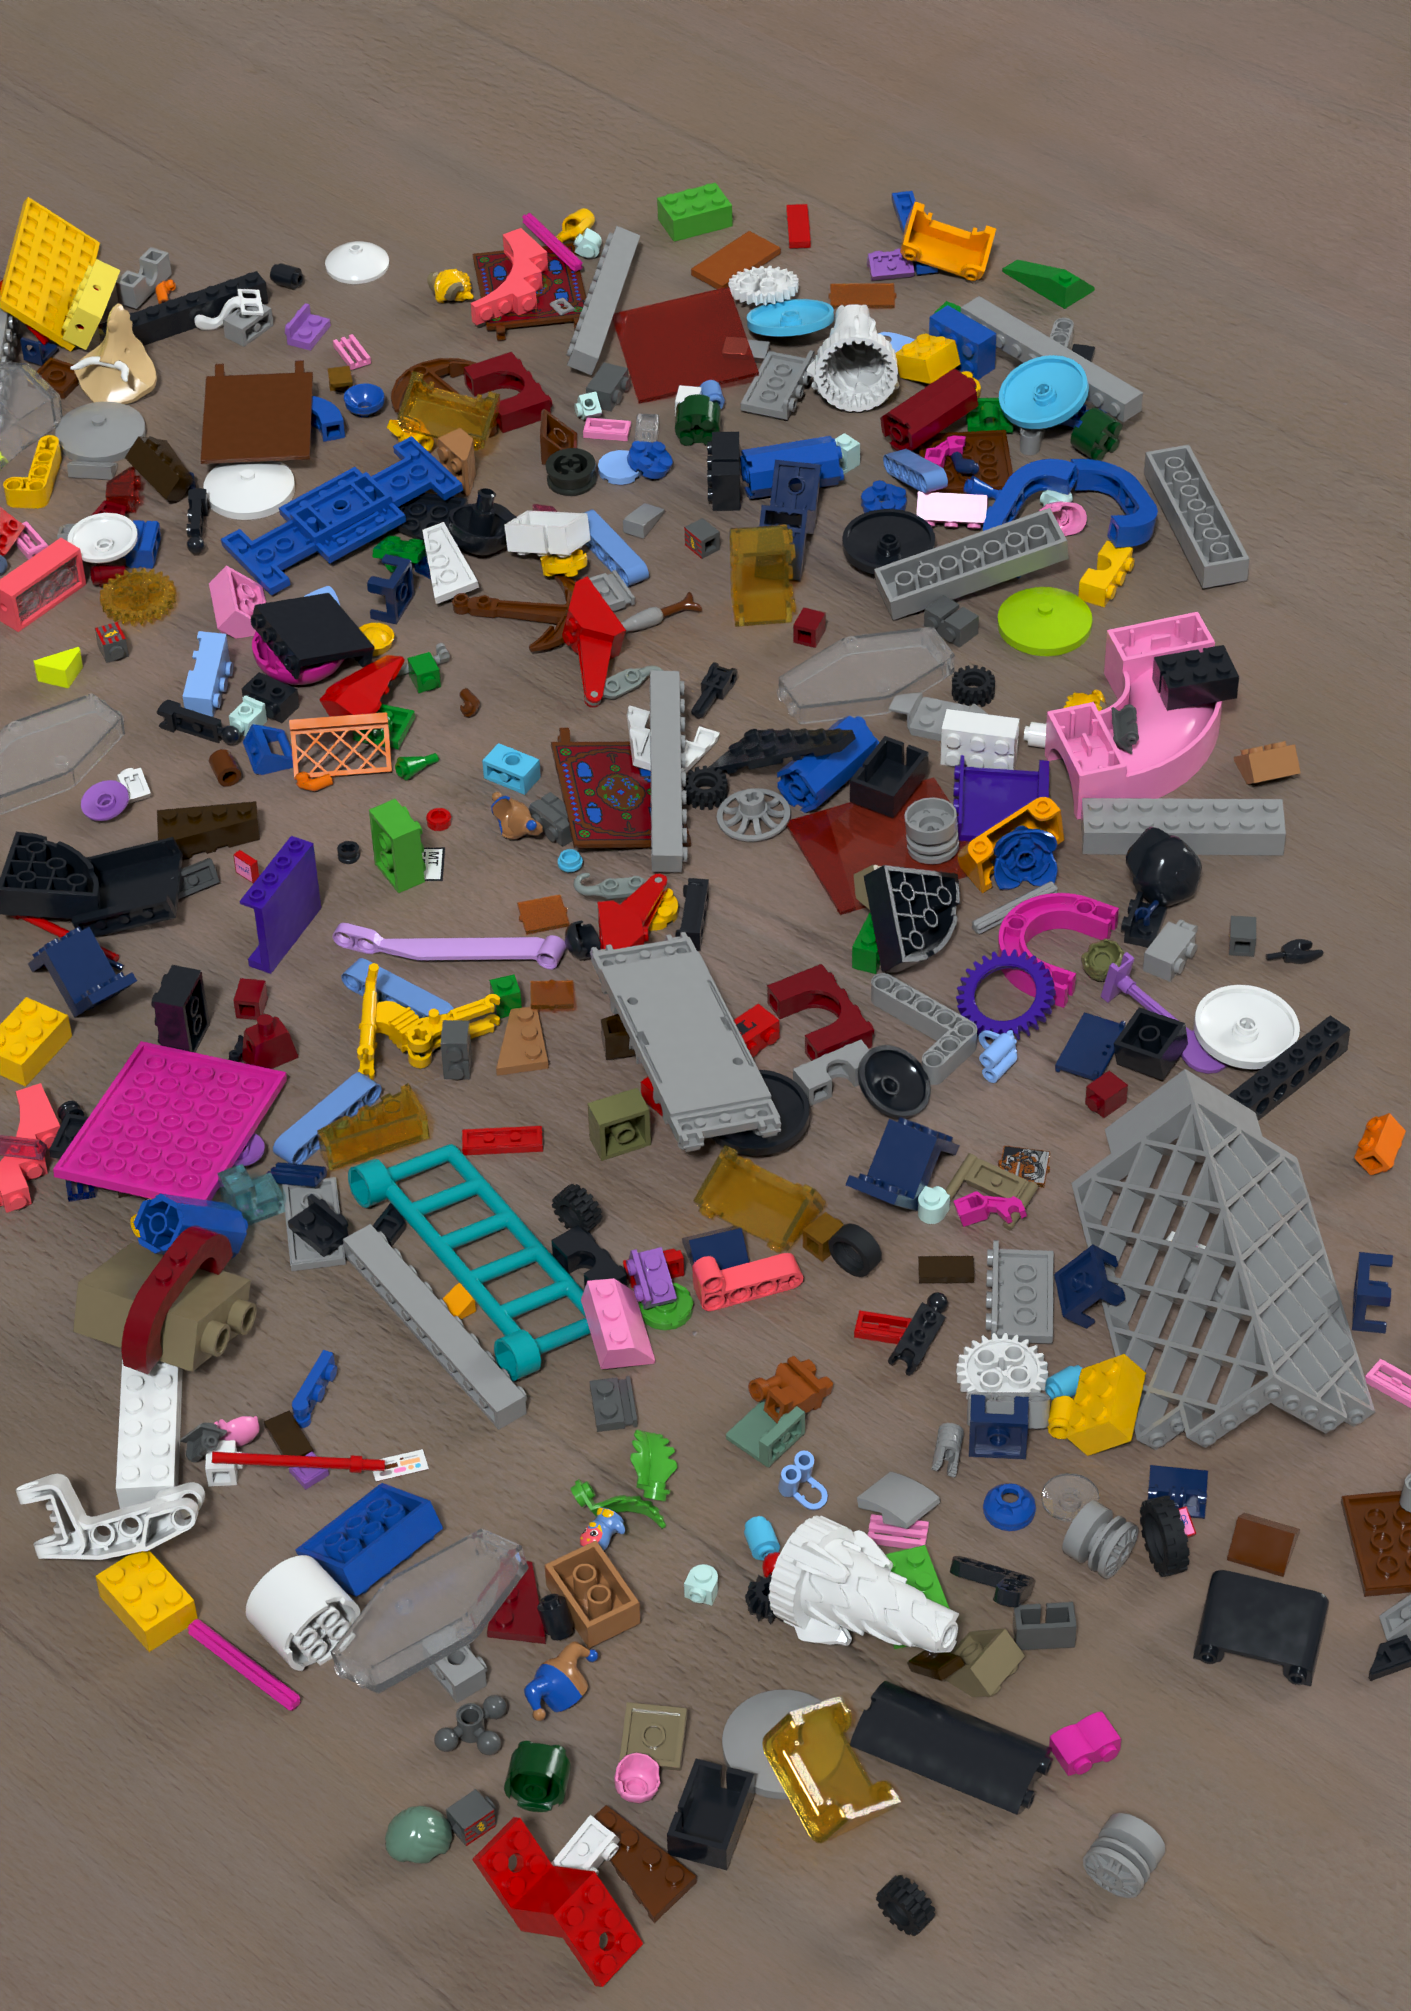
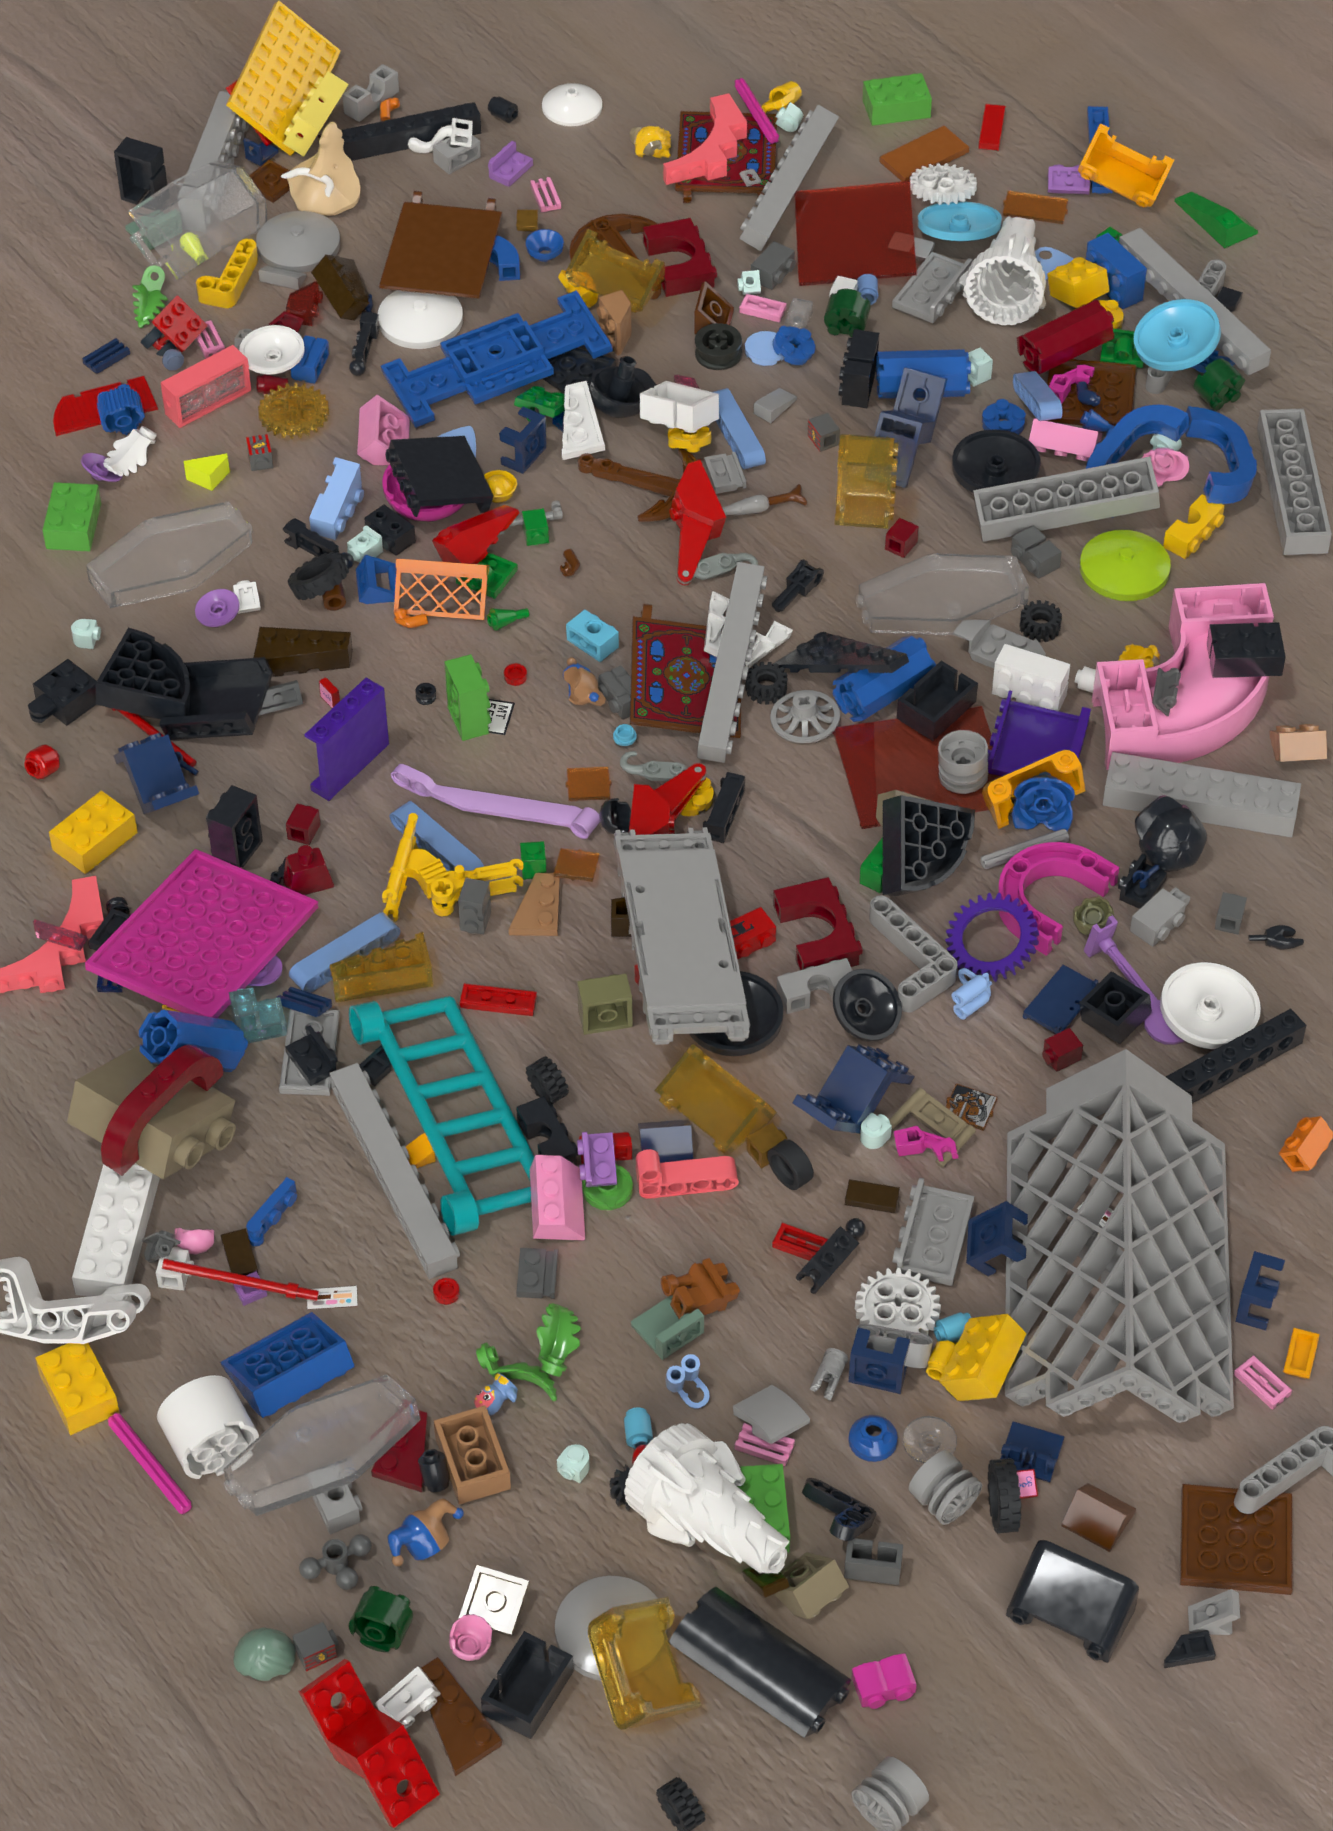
camera: 10 degrees right, 5 degrees up
(206, 752) = (318, 576): none -> black tyre
(520, 1437) = (446, 1291): none -> red tile

